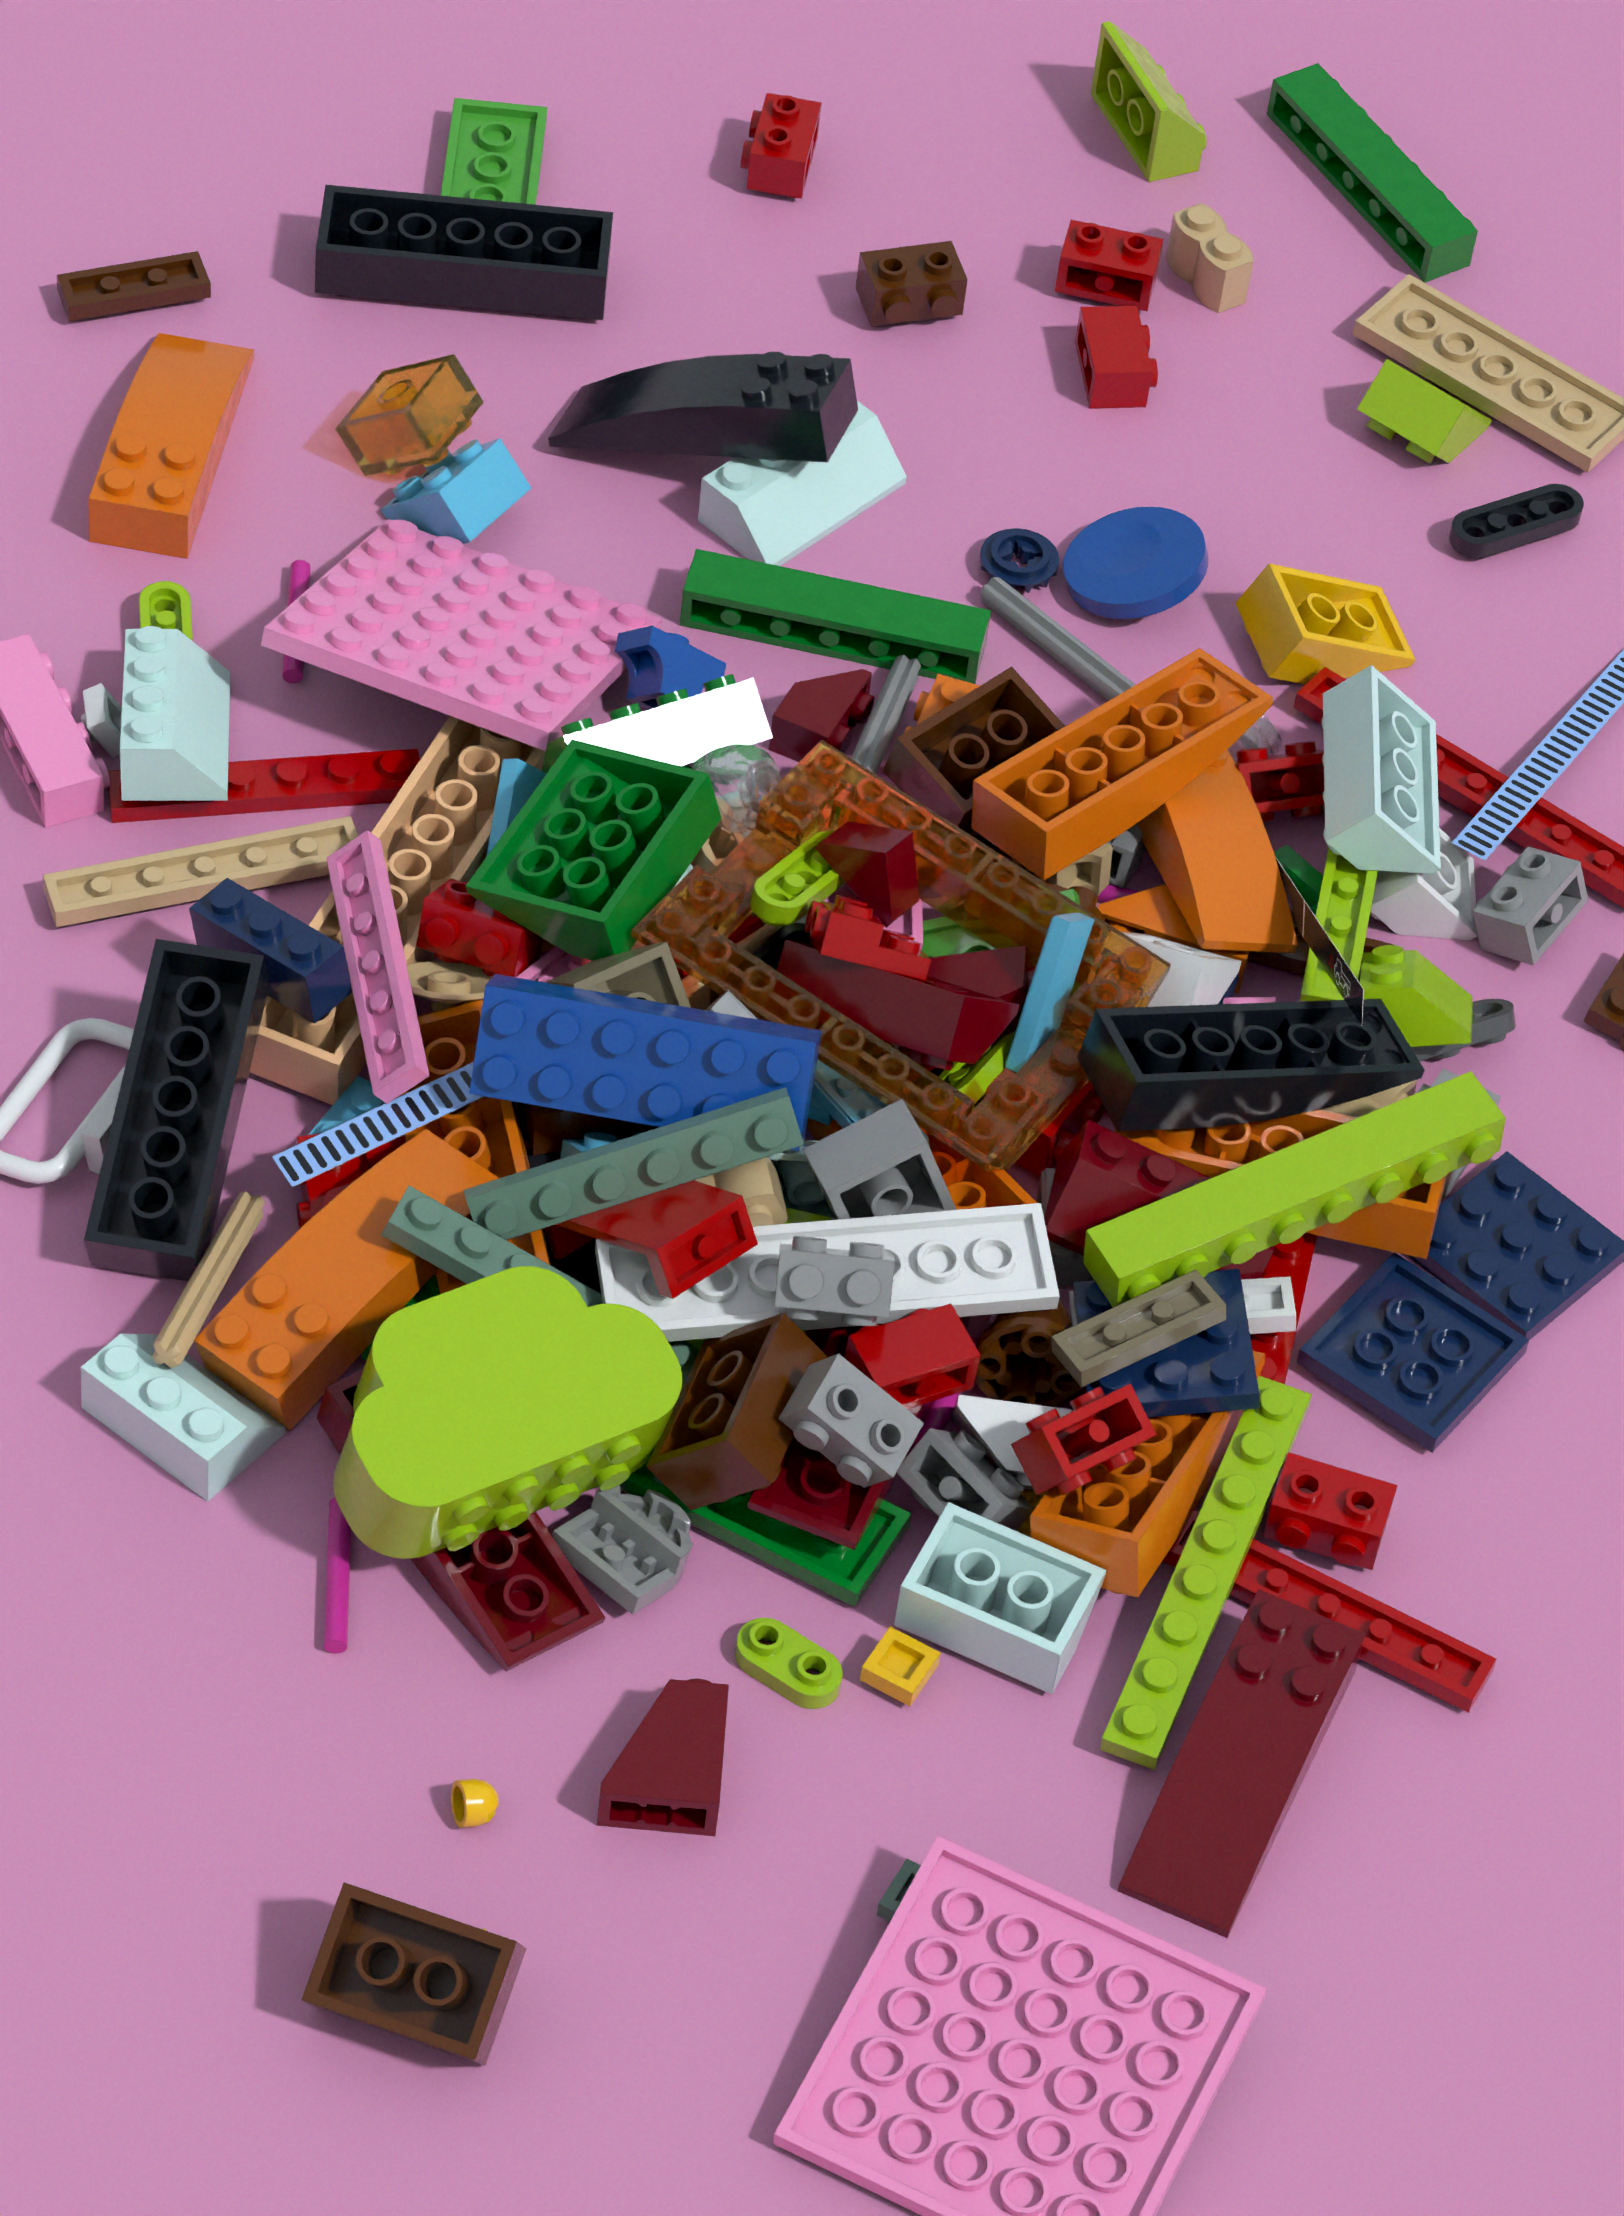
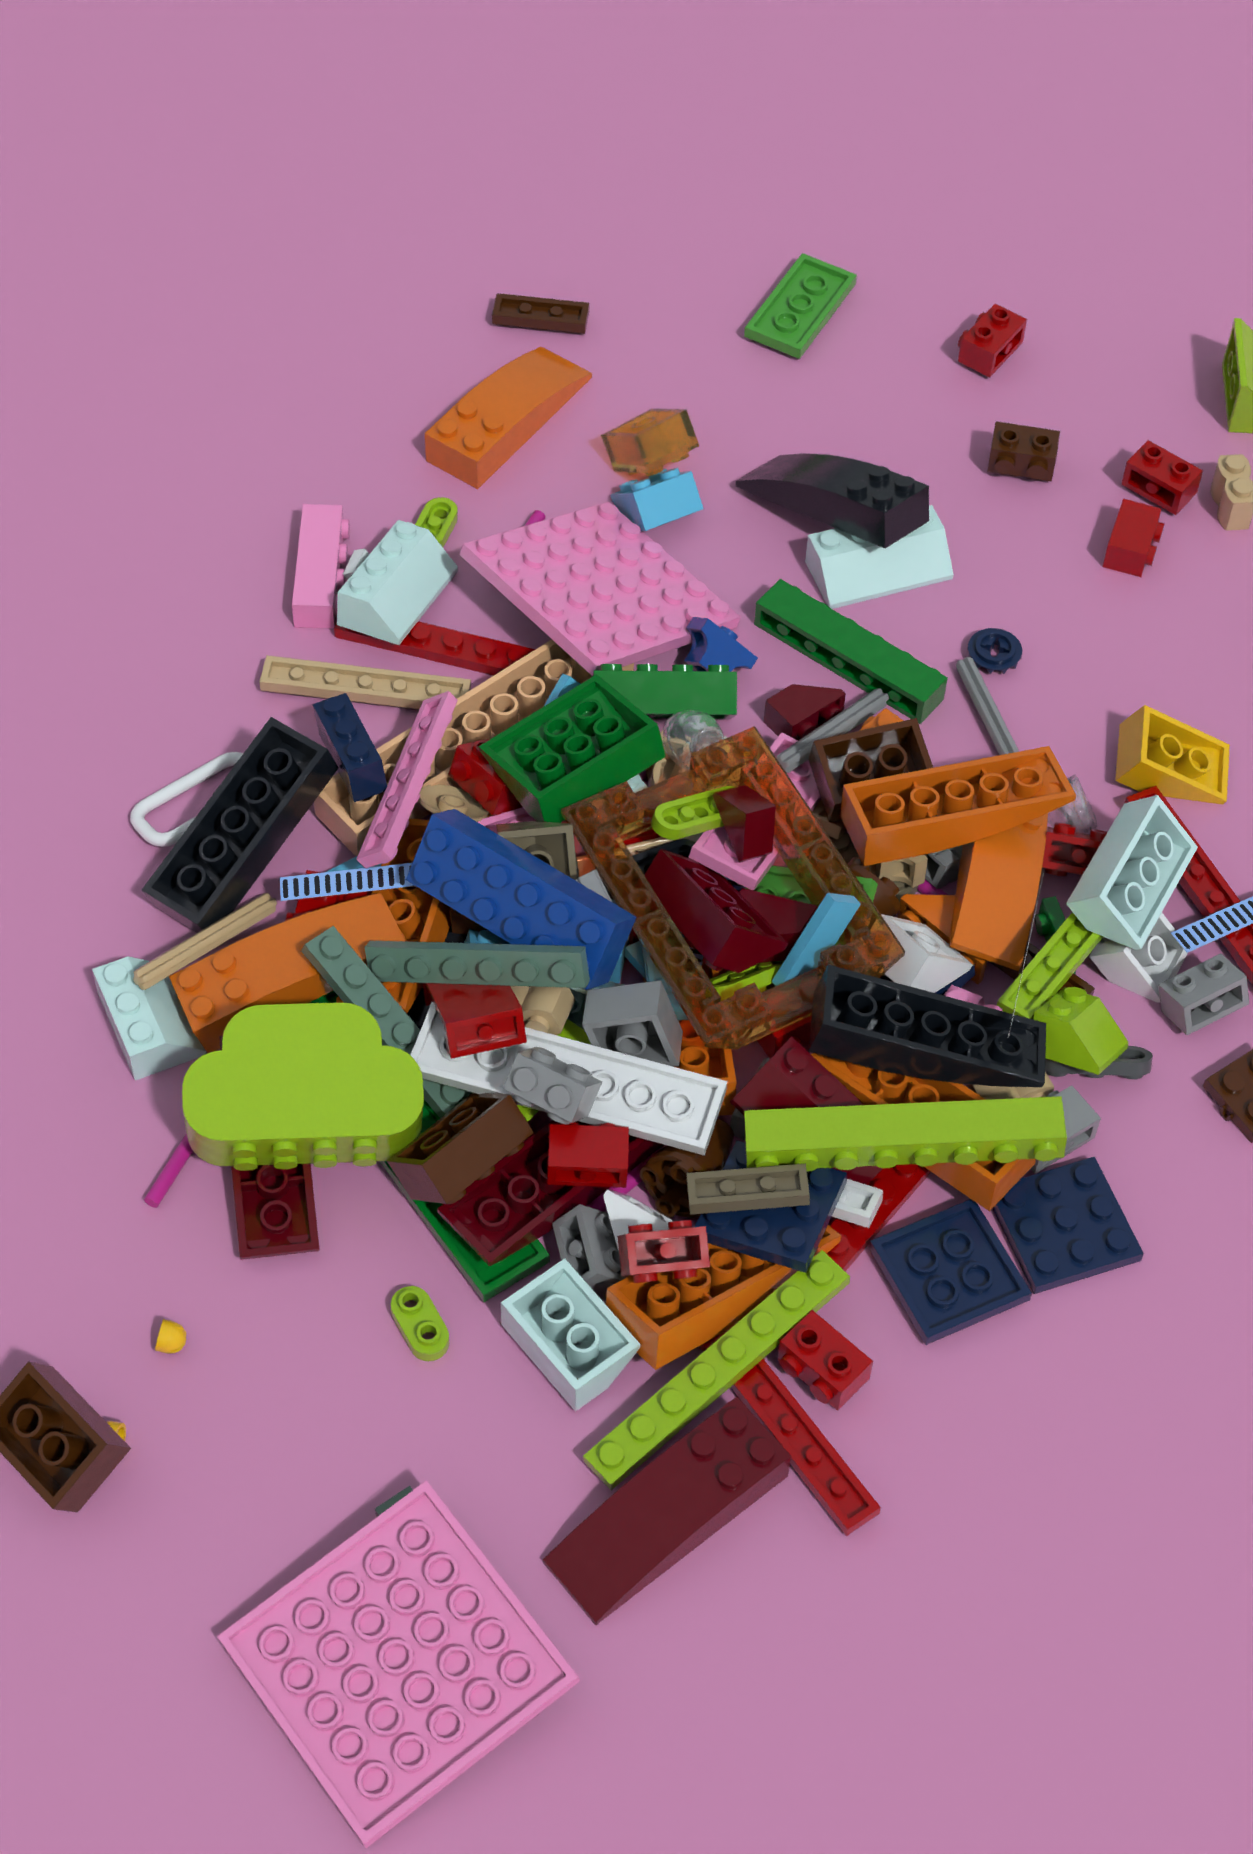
camera: 30 degrees right, 5 degrees up
(463, 252) = (749, 349): black brick -> none
(628, 1545) = (361, 1207): light grey slope -> none
(671, 1764) = (303, 1360): dark red slope -> none
(850, 1421) = (519, 1179): light grey brick -> none
(855, 935) = (700, 861): red plate -> none
(900, 1666) = (485, 1354): yellow plate -> none
(1135, 562) = (1067, 676): blue piece -> none

